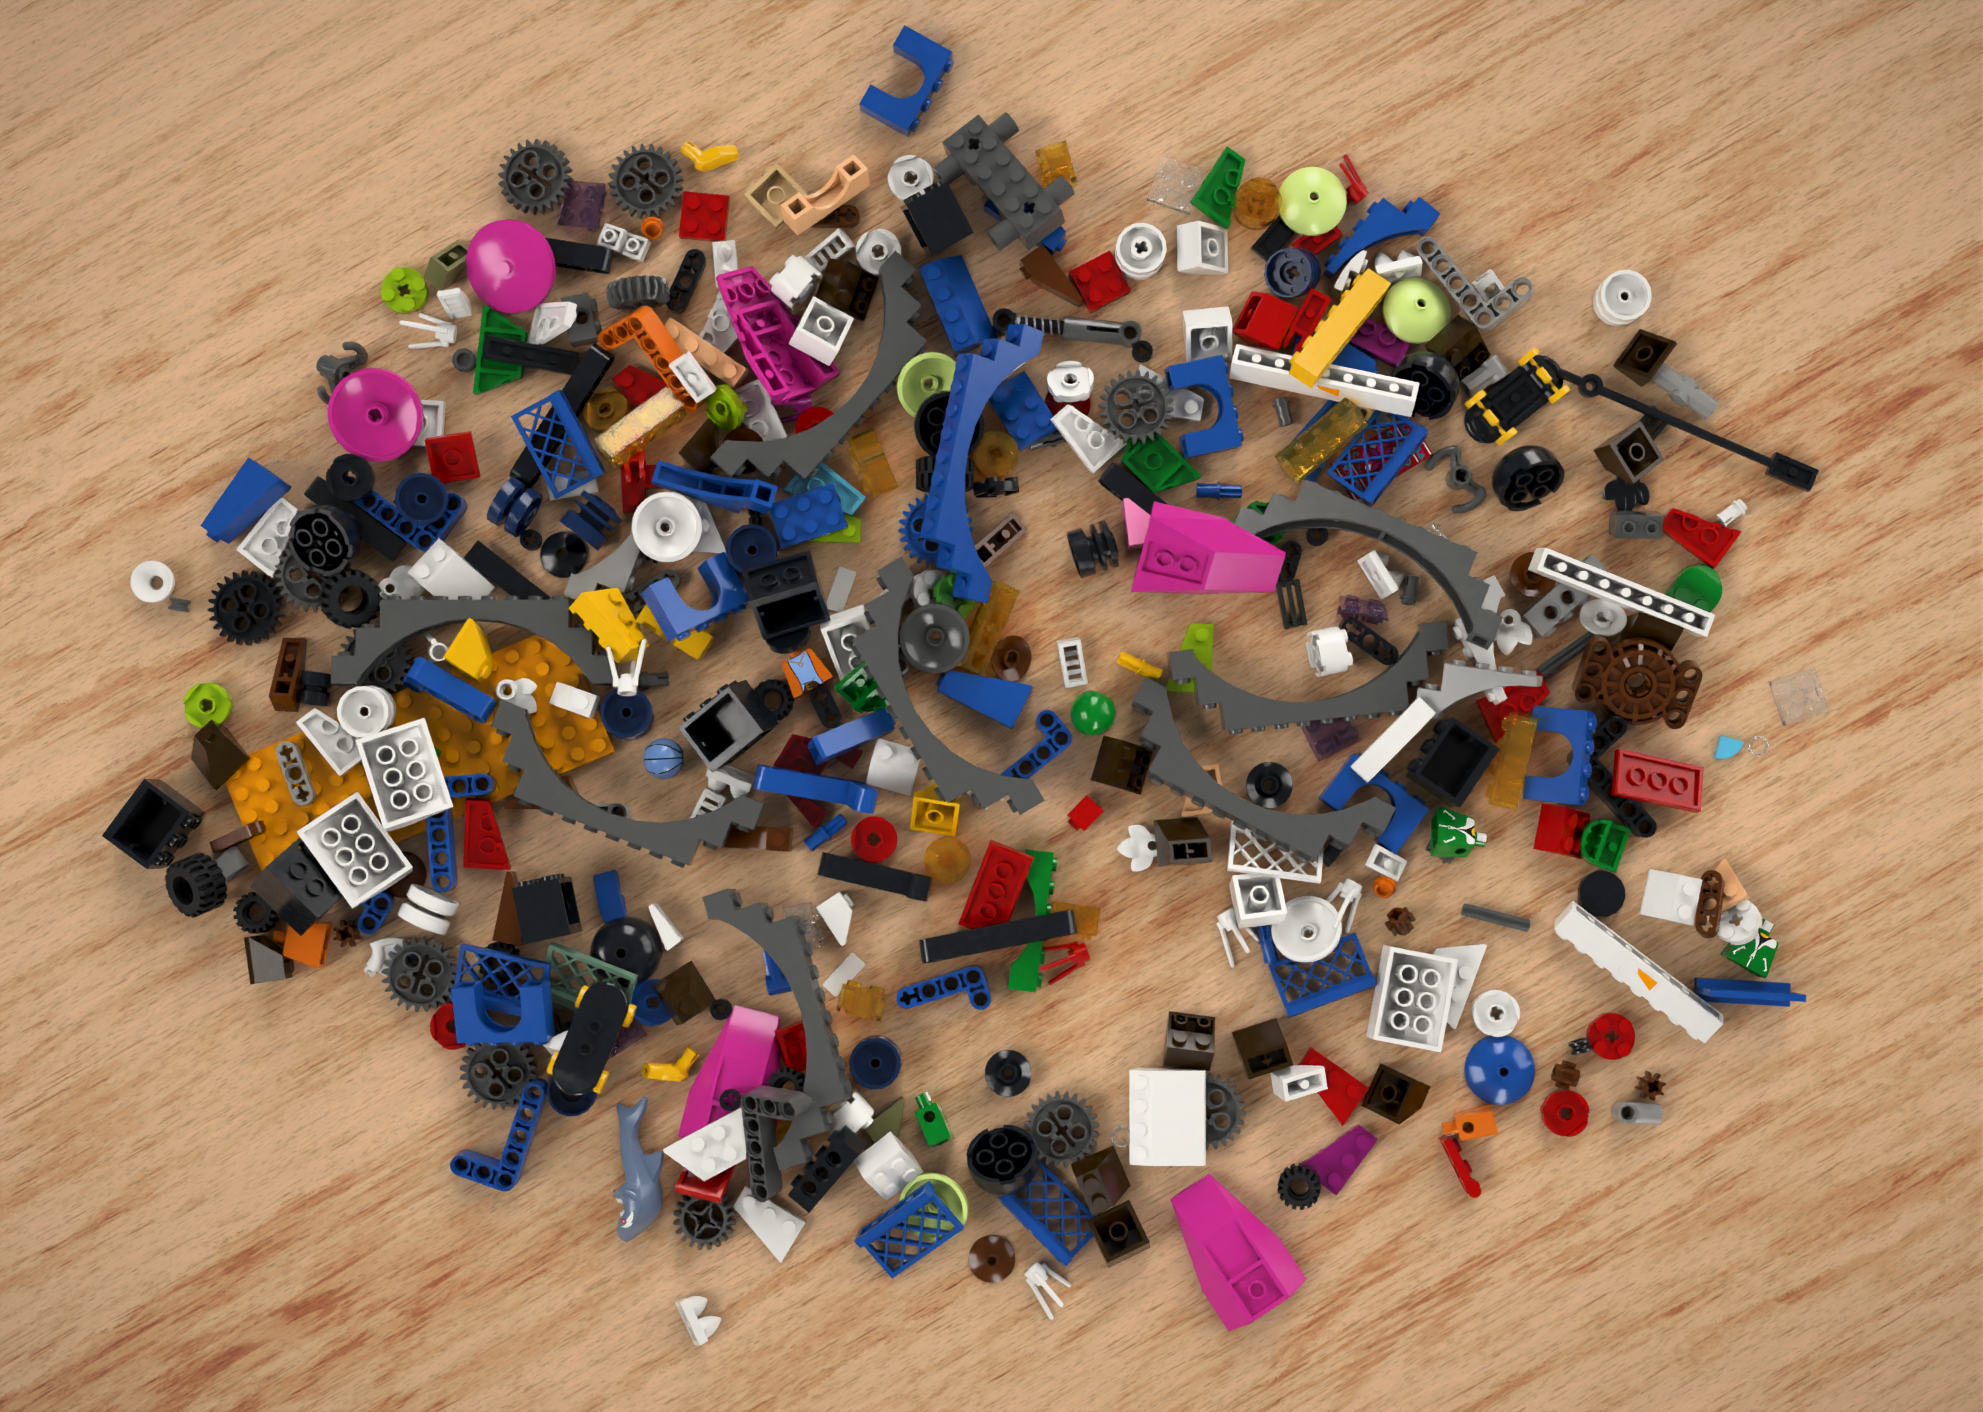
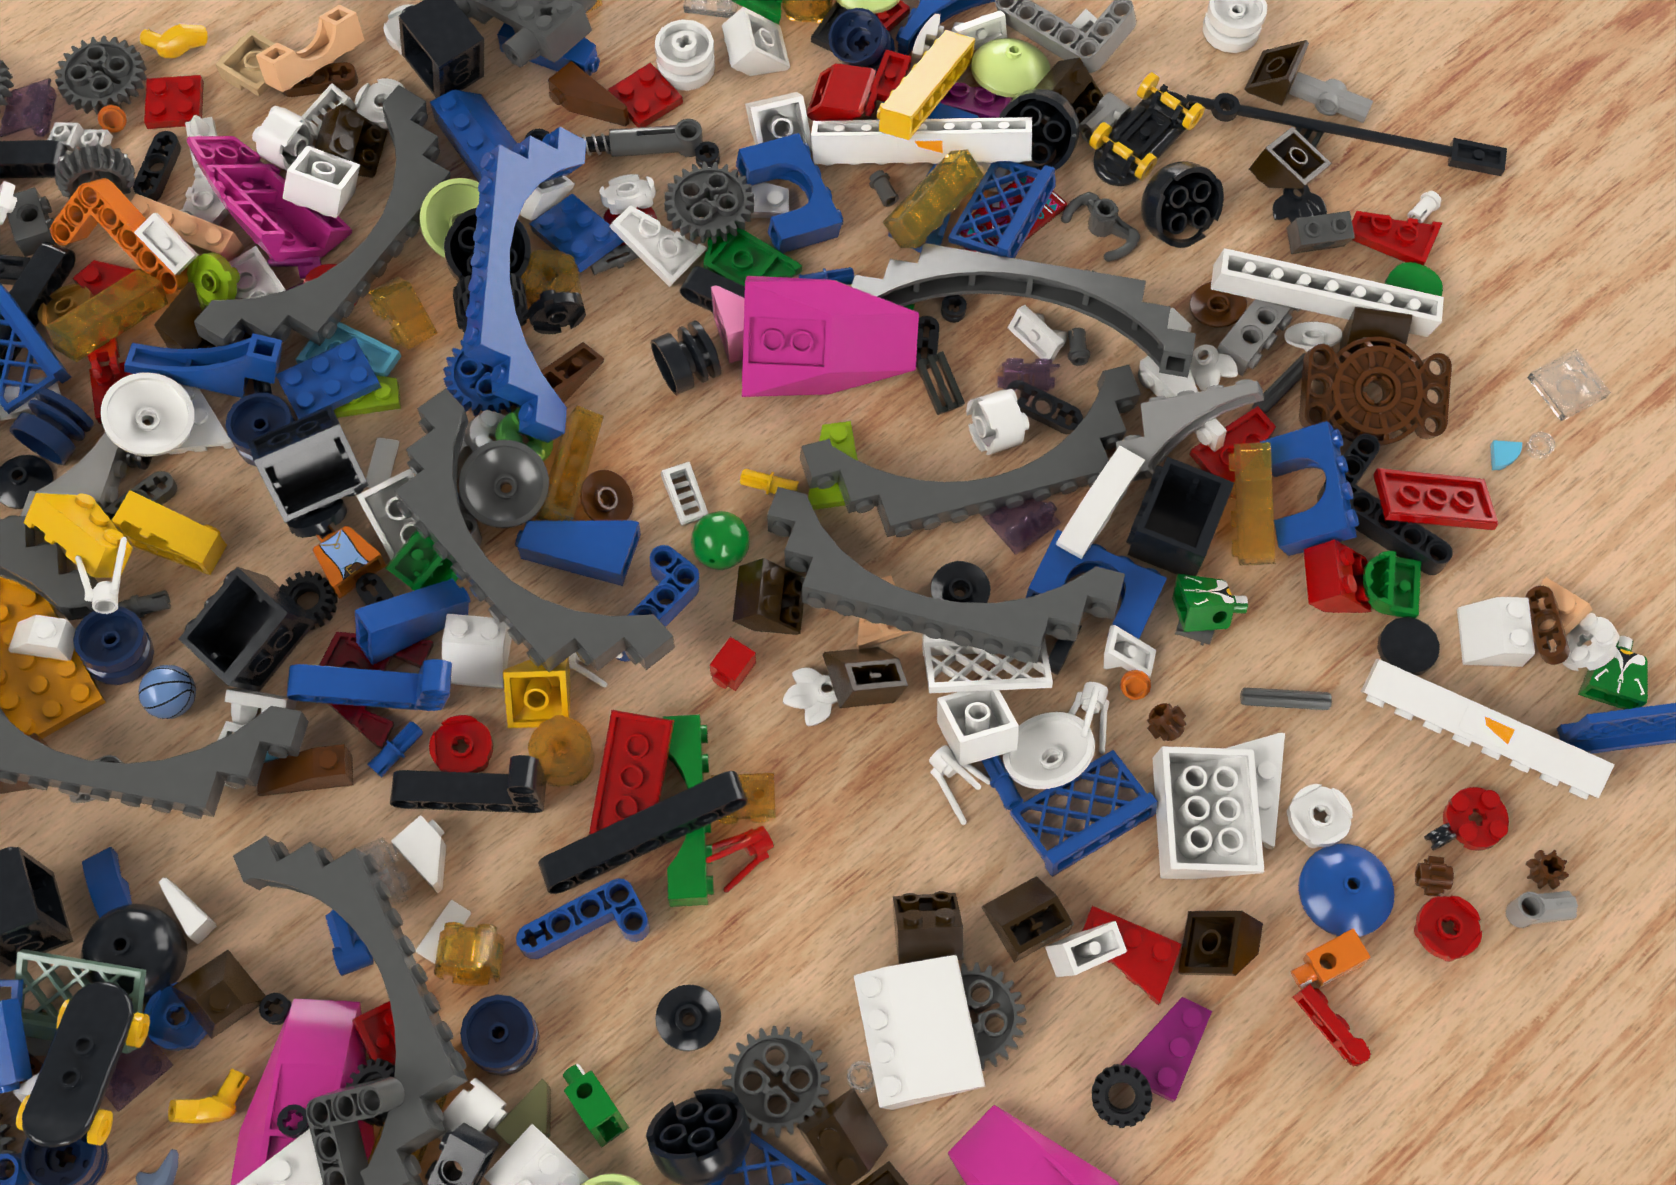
camera: 15 degrees left, 20 degrees down
(679, 619) = (171, 508): blue arch -> none

